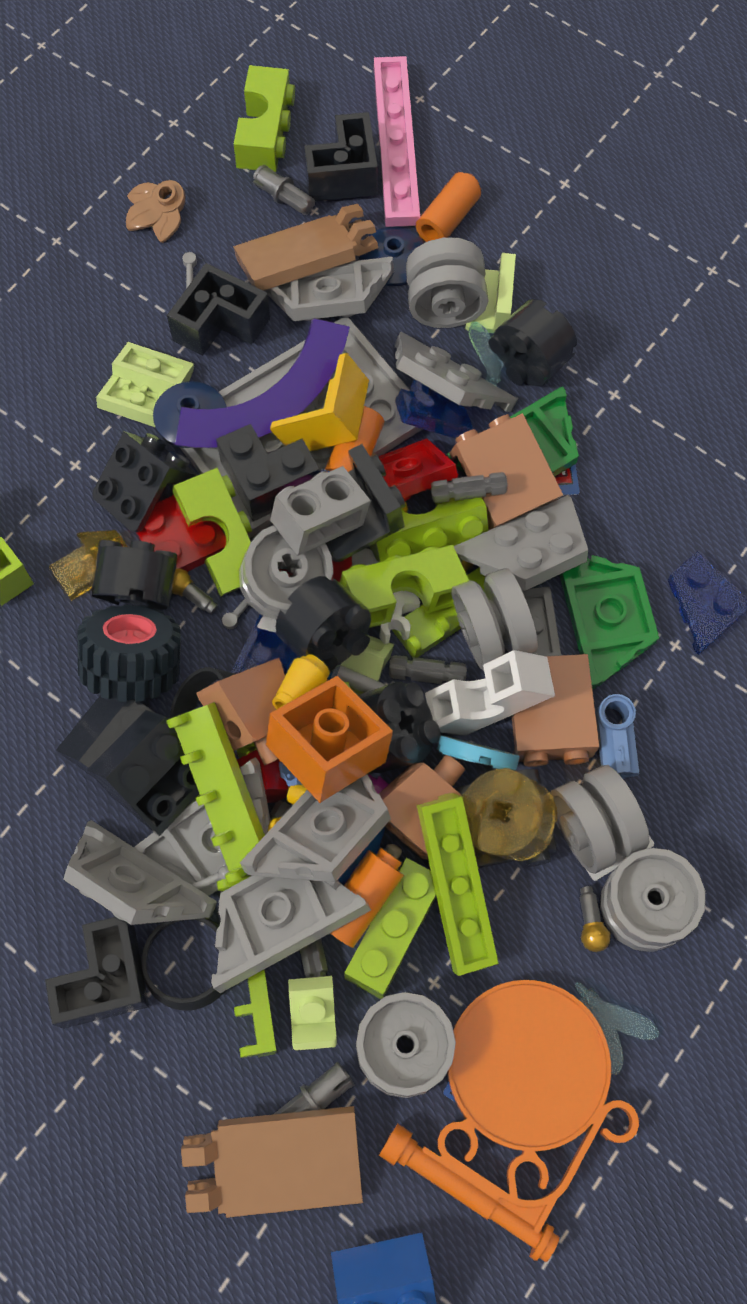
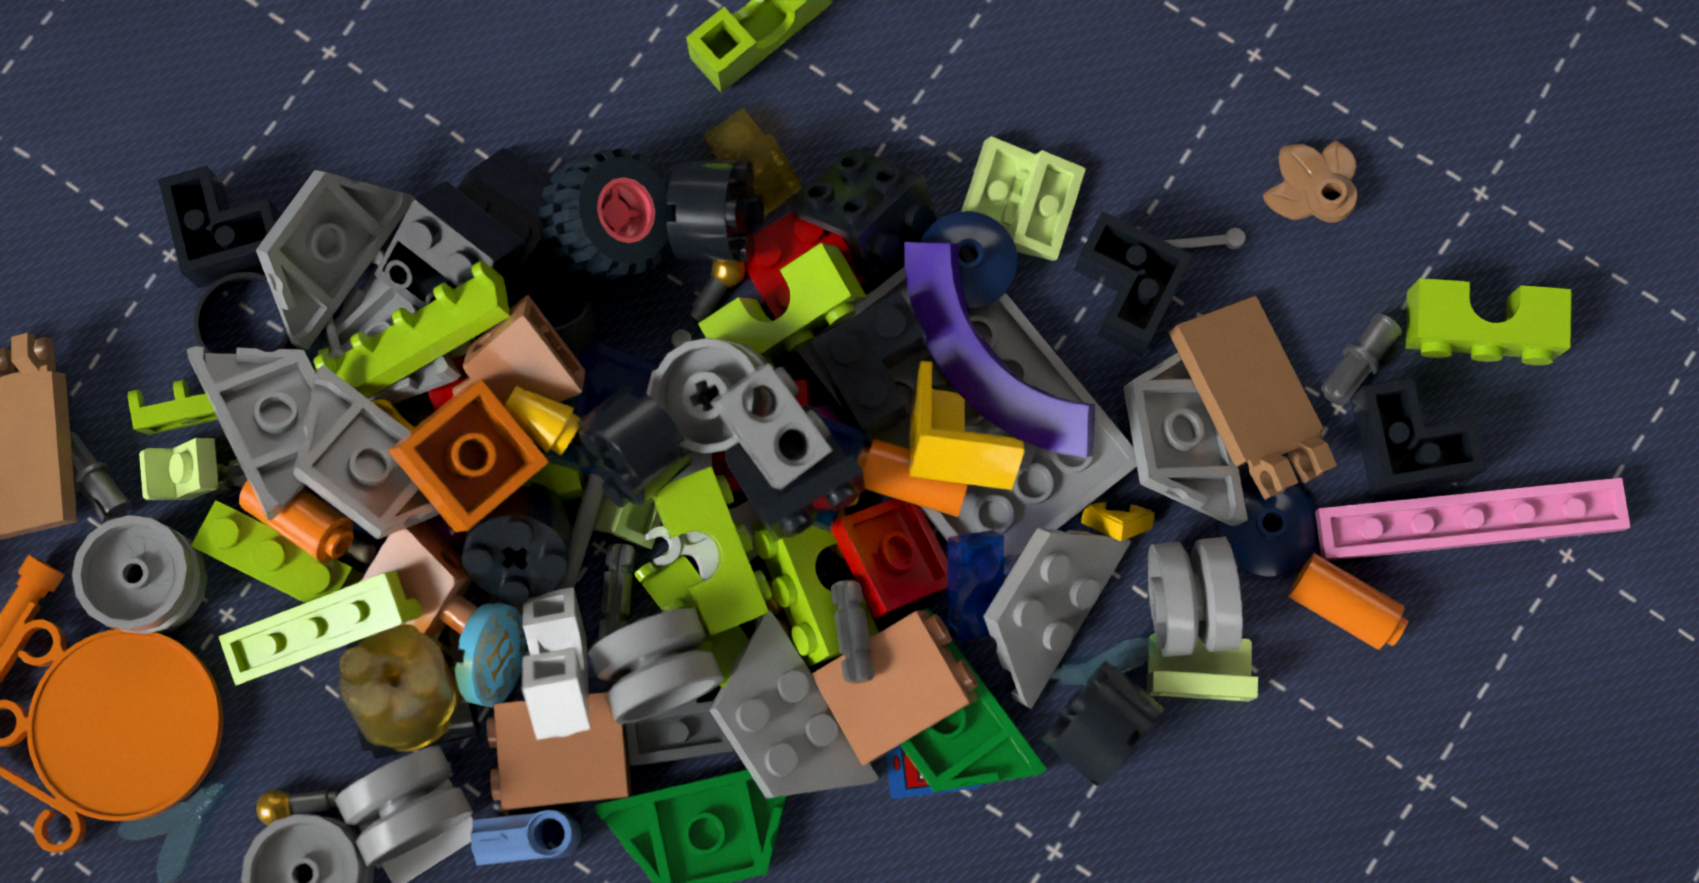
camera: 90 degrees right, 10 degrees up
(389, 336) = (1116, 523): none -> yellow tile

